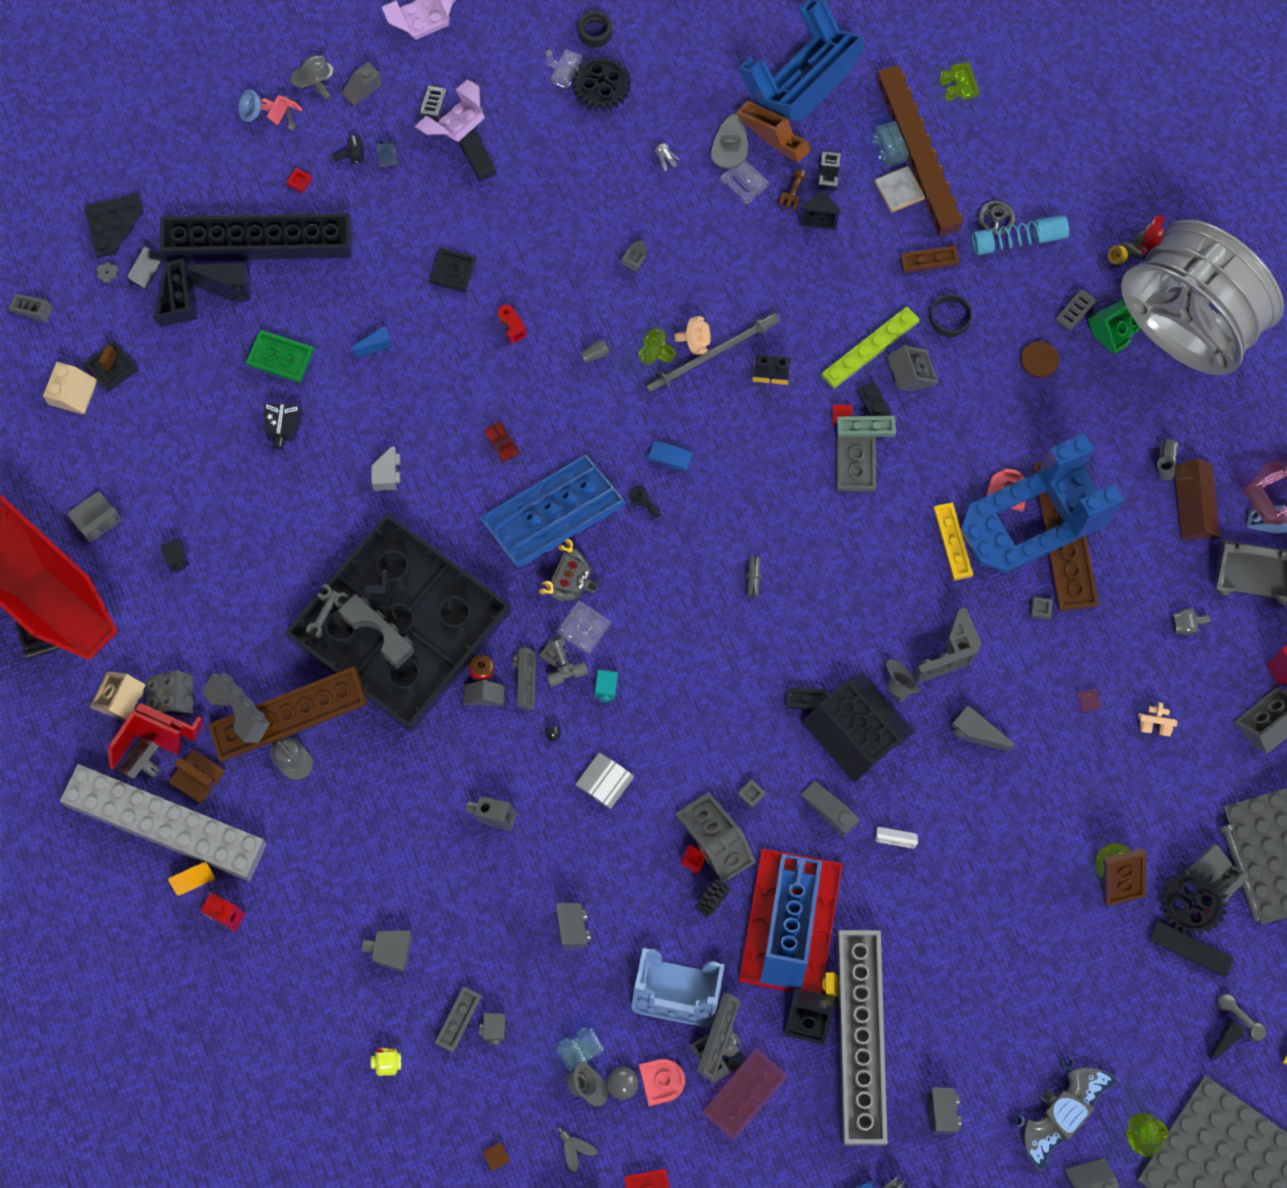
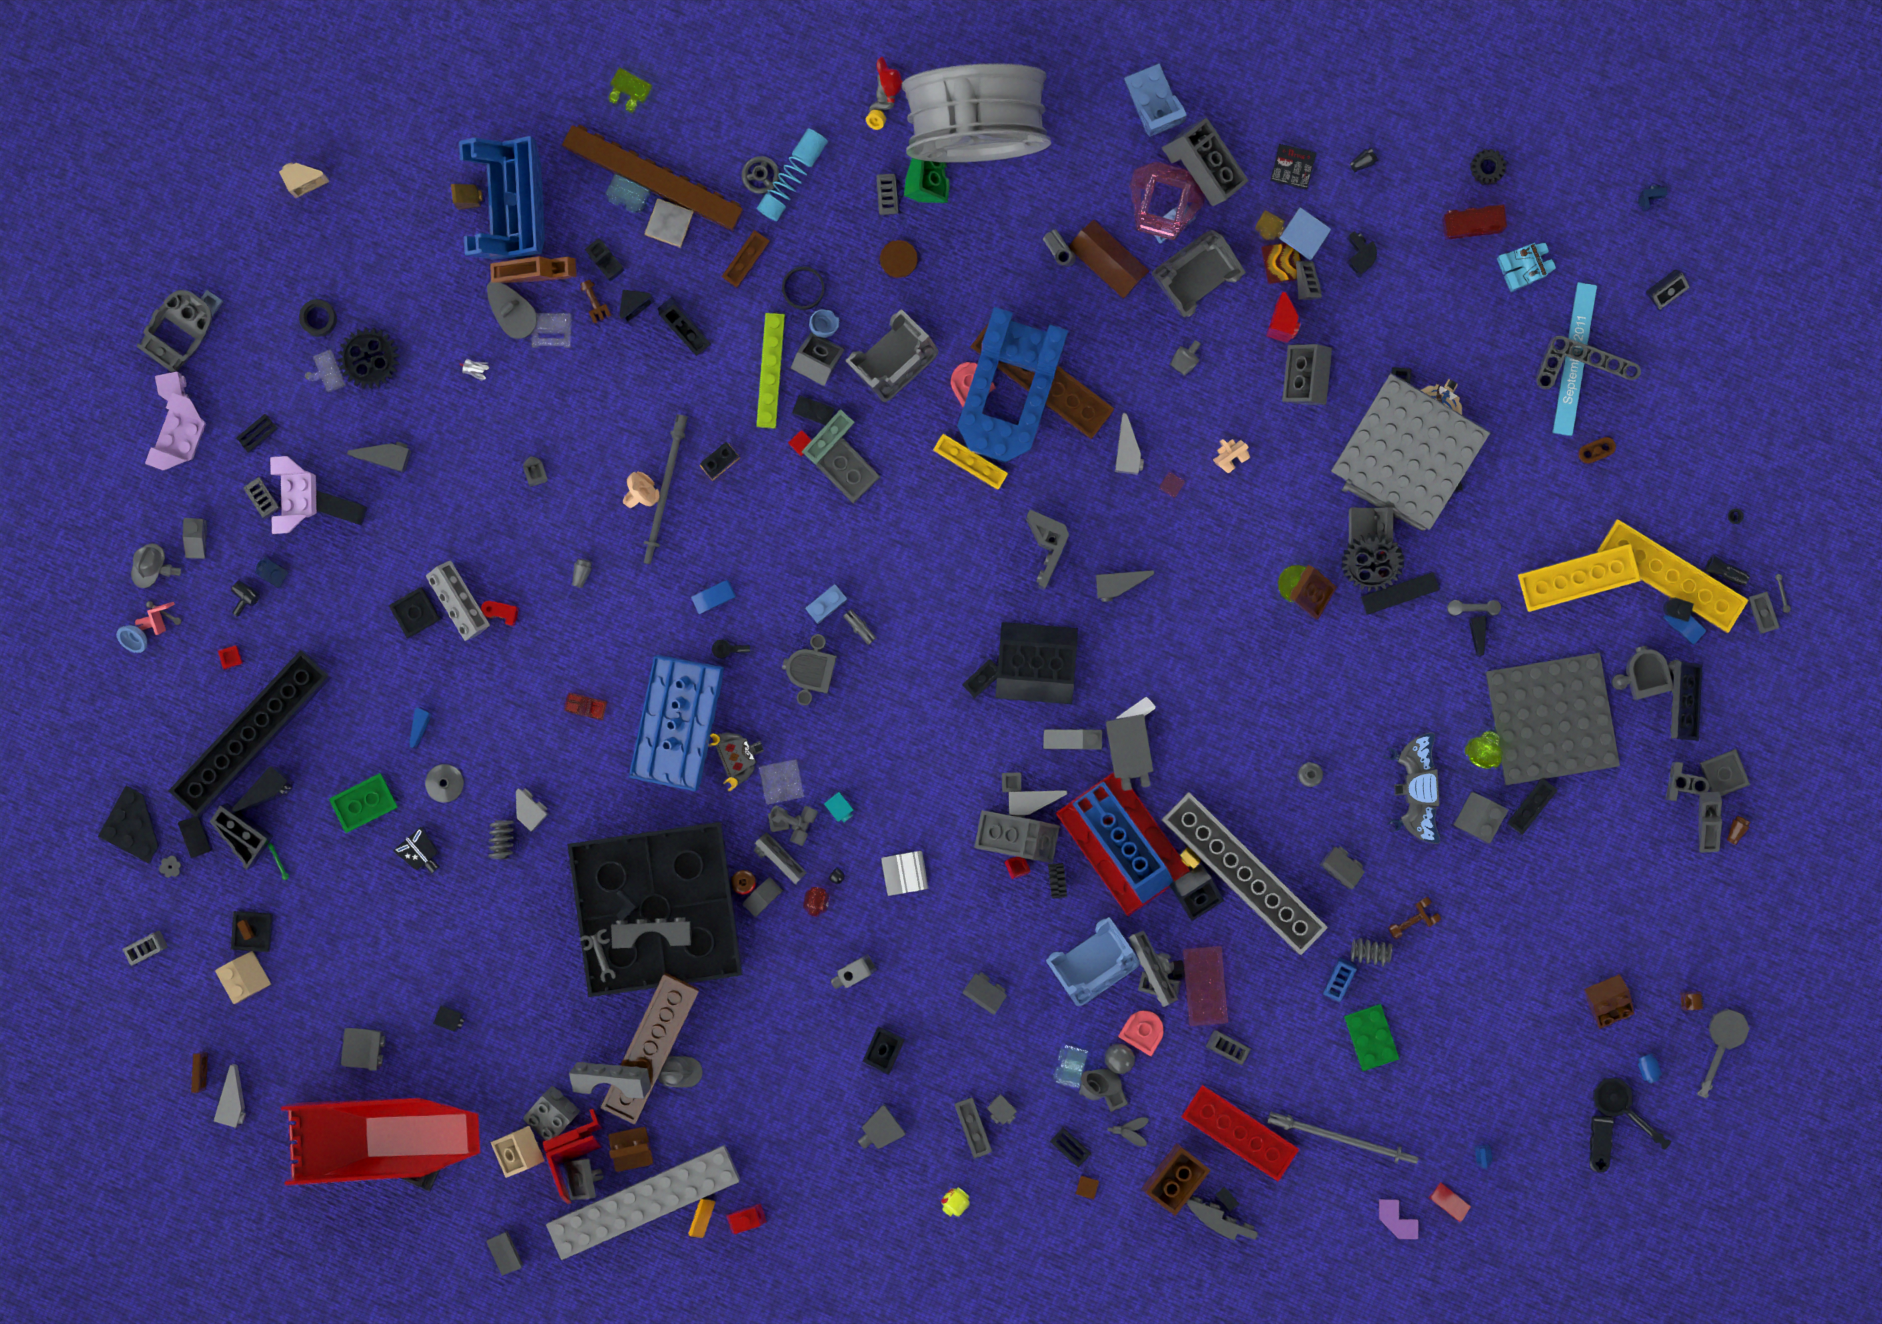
camera: 40 degrees left, 15 degrees up
(29, 759) = (505, 1253): none -> dark grey panel
(174, 353) = (285, 876): none -> green hinge
(344, 470) = (501, 839): none -> dark grey piece
(352, 406) = (454, 783): none -> dark grey dish
(454, 894) = (883, 1050): none -> black slope
(475, 58) = (269, 423): none -> black tile
(490, 286) = (457, 600): none -> light grey brick
(508, 1131) = (1058, 1136): none -> black tile
(519, 735) = (816, 901): none -> clear red head
(545, 152) = (386, 455): none -> dark grey slope
(587, 1112) = (1116, 1101): none -> dark grey tile
(656, 348) = (621, 530): clear neon green tile -> none
(687, 570) = (810, 669): none -> dark grey piece
(709, 1143) = (1213, 1041): none -> dark grey slope
(746, 536) = (826, 604): none -> medium blue brick
(754, 823) = (1028, 802): none -> light grey slope
(777, 43) = (466, 196): none -> pearl gold slope
(839, 261) = (683, 326): none -> black slope
(866, 855) = (1129, 749): none -> dark grey tile
(900, 681) = (1034, 601): dark grey piece -> none
(941, 350) = (823, 323): none -> medium blue hair
(970, 421) = (894, 358): none -> dark grey windscreen
(987, 1014) = (1310, 774): none -> dark grey head
(1041, 608) = (1076, 449): dark grey tile -> none
(1077, 646) = (1128, 452): none -> light grey slope

